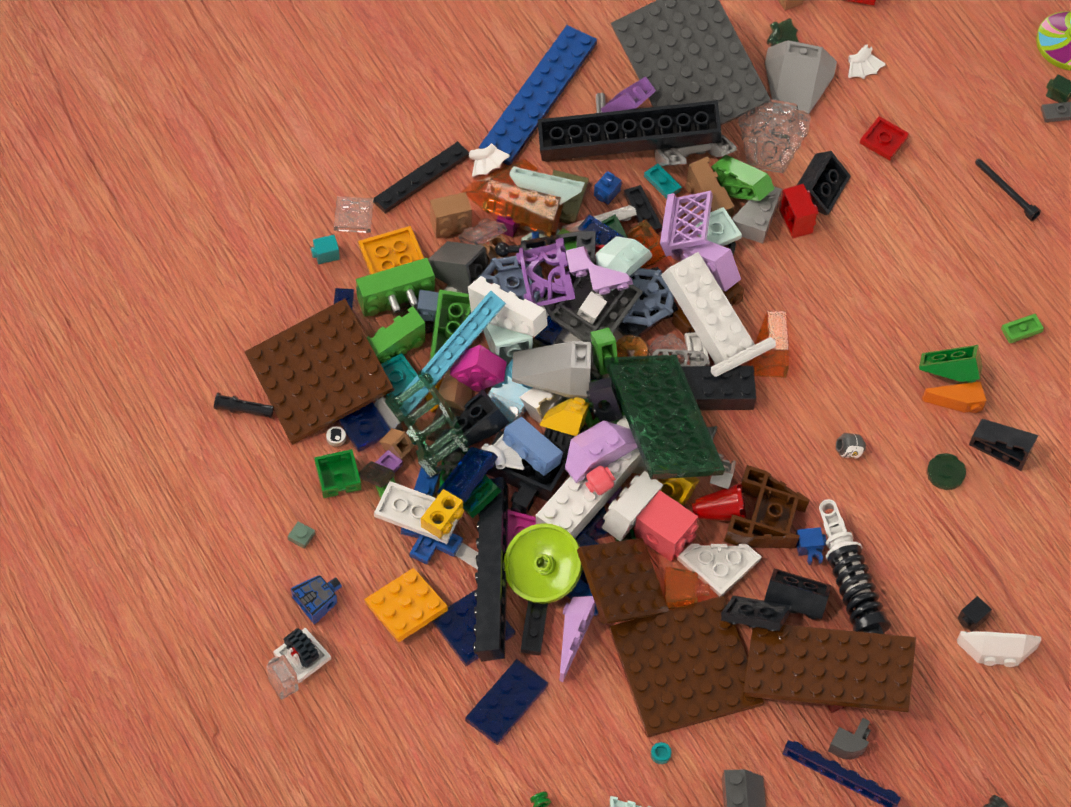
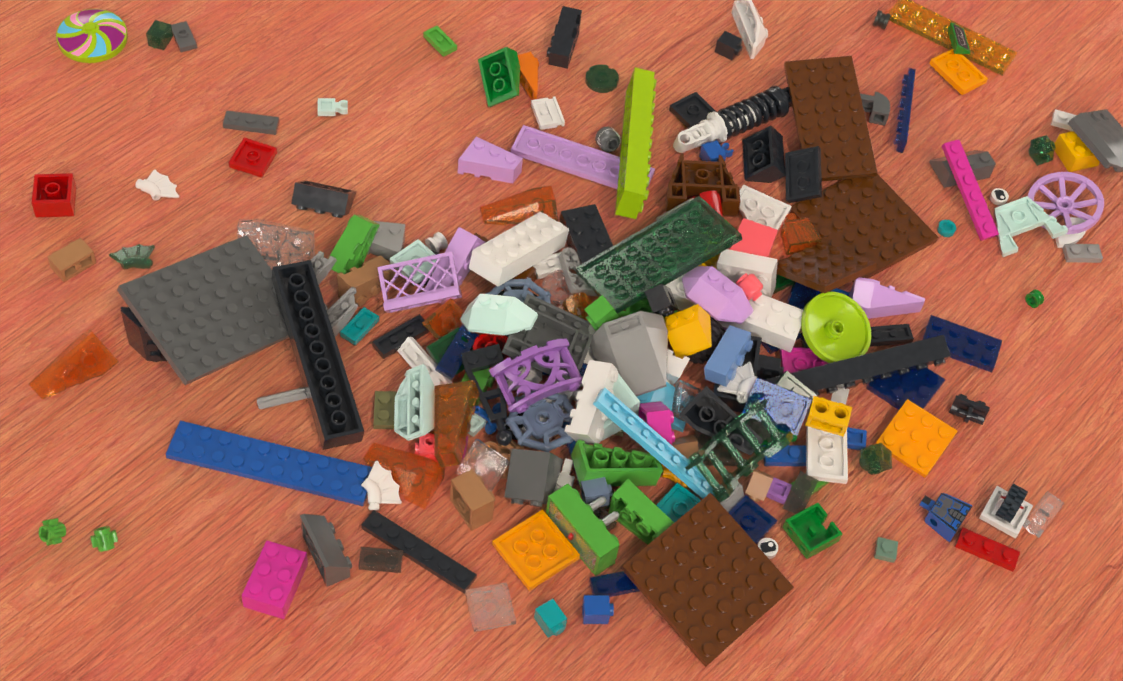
camera: 110 degrees left, 5 degrees down
(235, 404) = (774, 653): black pin -> none
(271, 624) = (987, 549): none -> red plate
(322, 284) = (596, 609): none -> blue brick
(392, 554) = (876, 458): none -> clear green brick
(418, 677) = (969, 409): none -> black hips
(420, 147) = (381, 559): none -> clear smoke plate
(425, 73) = (275, 579): none -> dark pink brick
(440, 106) = (325, 548): none -> dark grey slope
(592, 307) = (559, 330): white brick -> none
(601, 278) = (535, 318): lavender arch -> none
(607, 188) = (384, 370): blue brick -> none
(630, 97) = (274, 362): medium lavender window -> none
(698, 784) = (970, 190): none -> dark pink plate
(743, 356) = (559, 215): white axle -> none
(744, 260) = (437, 242): none -> white wheel
(798, 210) = (371, 201): red brick -> none
(799, 73) = (189, 232): light grey wedge -> none
(826, 416) = (568, 156): none -> lavender plate
(831, 457) = (636, 144): none -> lime brick
(839, 329) = (490, 161): none -> lavender wedge
(879, 544) = (691, 109): none -> black plate
(900, 401) = (547, 113): none -> white plate
(932, 147) = (251, 122): none -> dark grey plate
(940, 212) = (329, 107): none -> light aqua plate
(1030, 211) = (309, 45): black piece -> none

